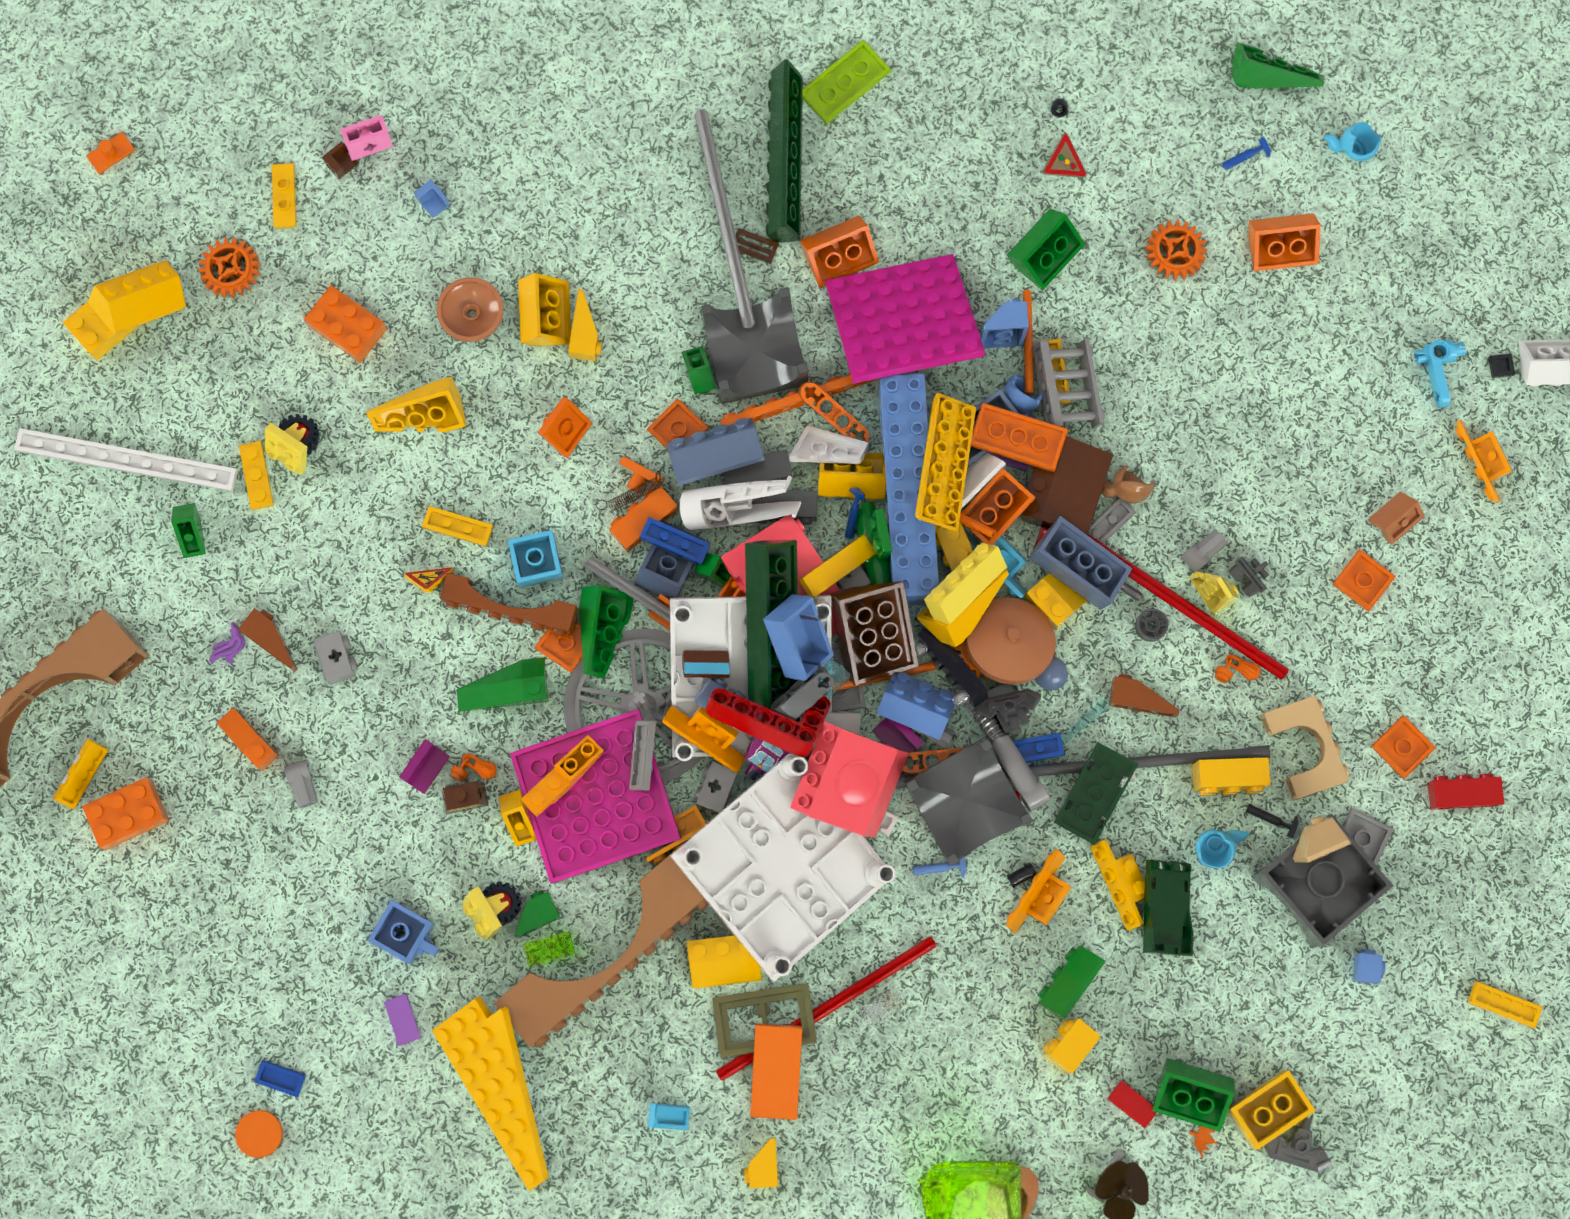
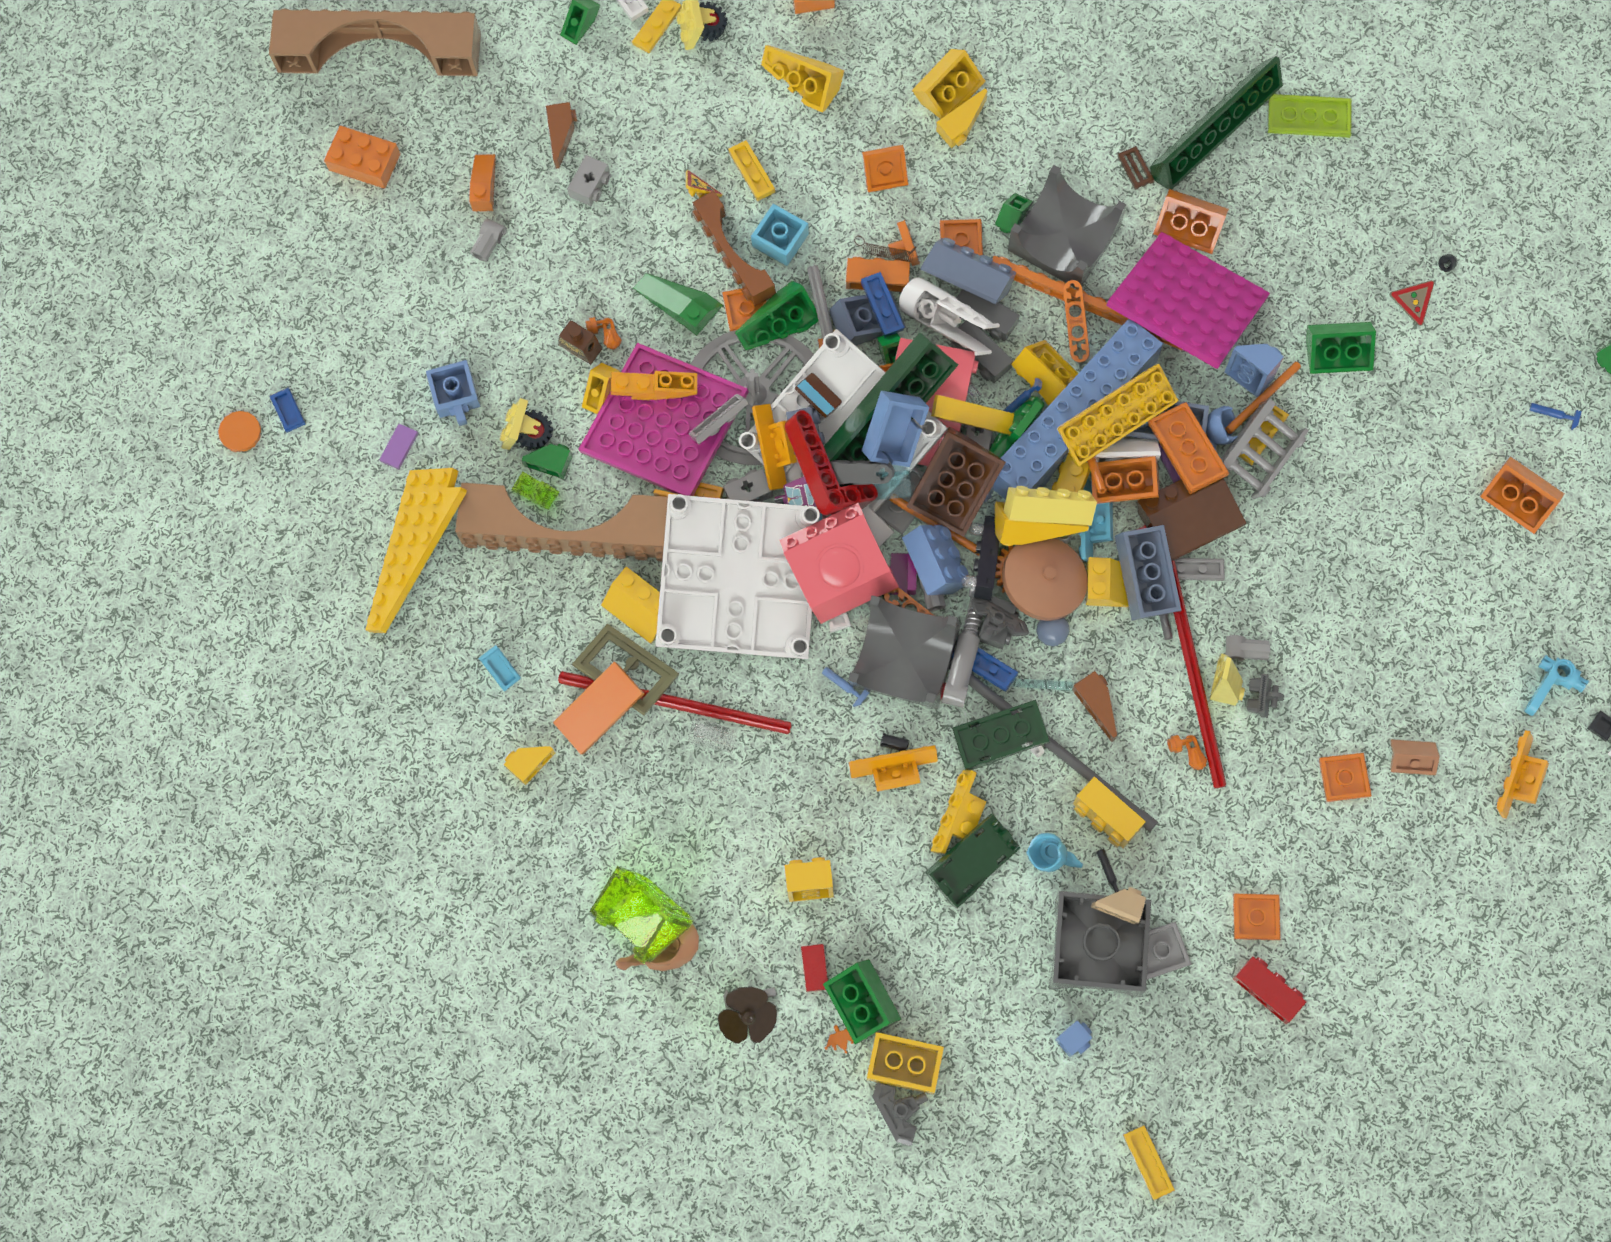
camera: 50 degrees right, 5 degrees down
(80, 774) = (360, 108): yellow plate -> none
(229, 648) = (530, 116): medium lavender piece -> none
(424, 766) = (575, 300): magenta panel -> none
(466, 296) = (903, 29): nougat dish -> none
(725, 219) = (1131, 131): light grey axle -> none
(828, 447) = (1049, 339): white wing -> none
(1070, 981) = (855, 842): green slope -> none
(1127, 487) = (1234, 554): medium nougat hair -> none
(1154, 616) = (1166, 662): dark grey wheel -> none
(1185, 235) = (1436, 416): orange gear -> none
(1308, 716) = (1206, 827): tan arch -> none

